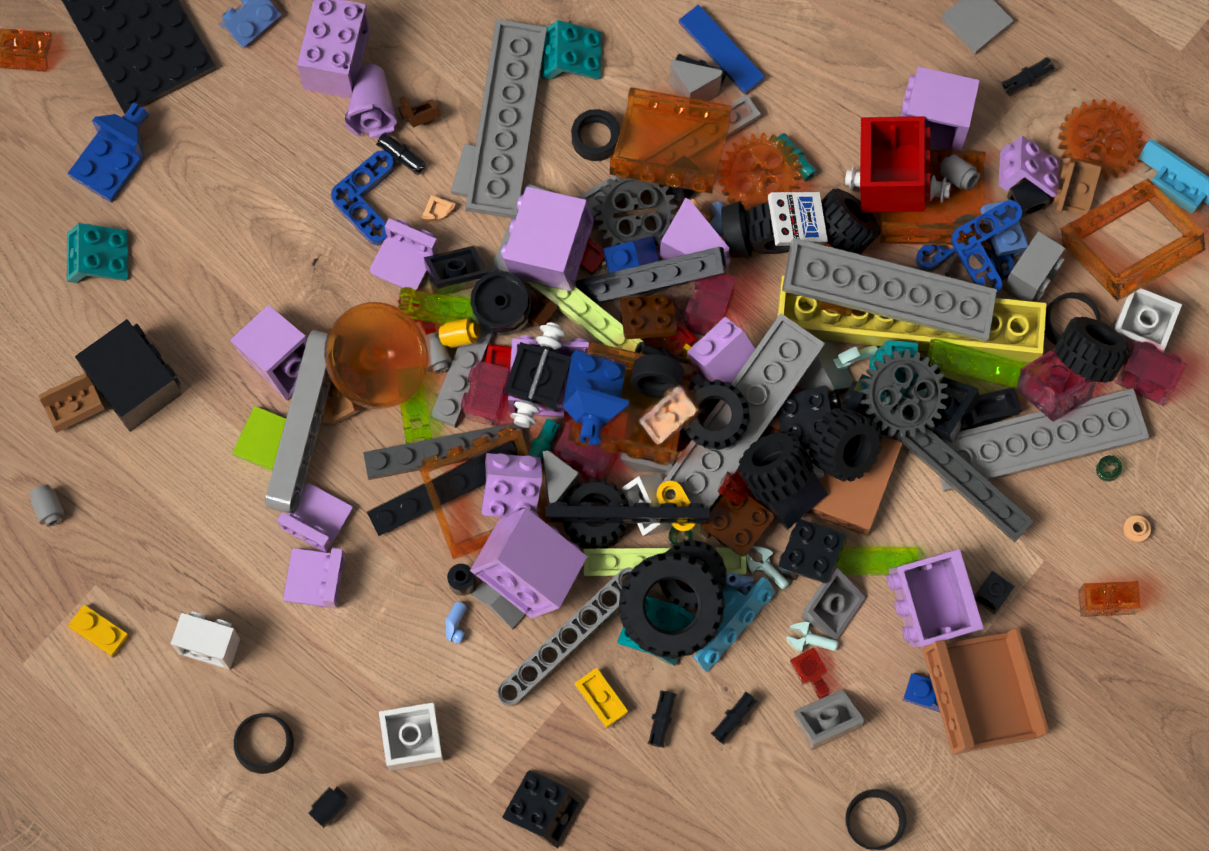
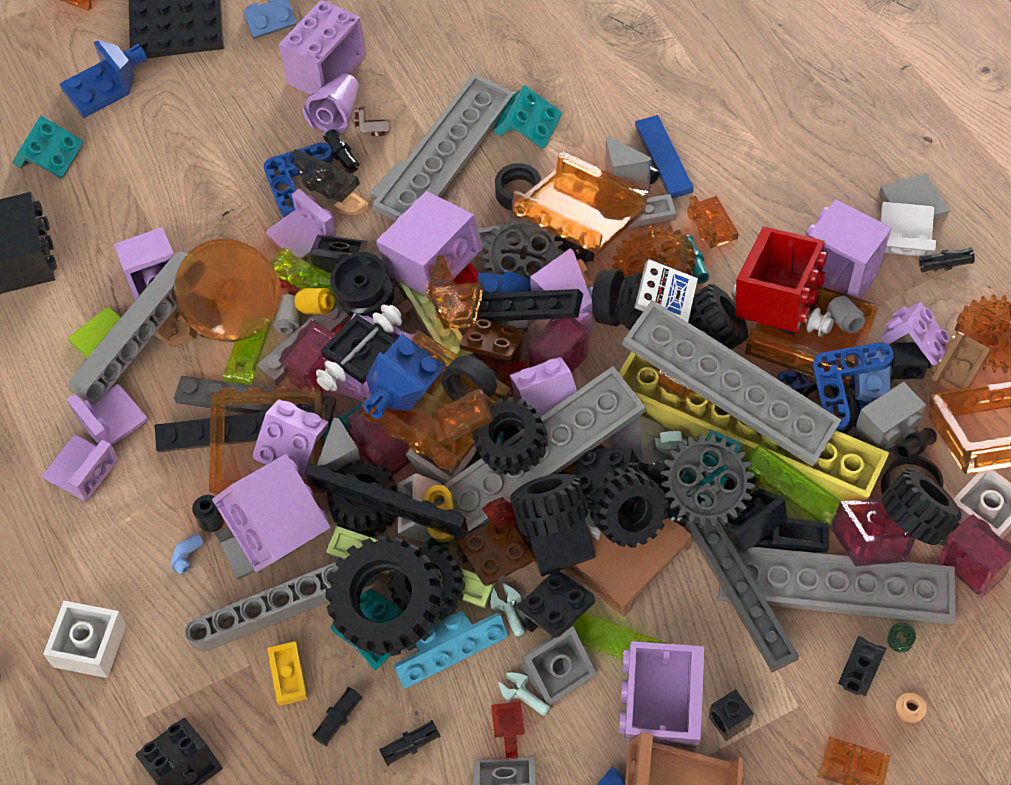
camera: 25 degrees right, 15 degrees down
(404, 192) = (324, 178): none -> clear smoke bracket
(599, 288) = (453, 303): none -> clear orange bracket
(742, 582) = (472, 610): light blue arm -> none
(796, 108) = (712, 221): none -> clear orange bracket
(983, 56) = (910, 228): none -> white bracket
(1063, 281) = (915, 443): none -> black pin
(1086, 510) = (861, 666): none -> black hips

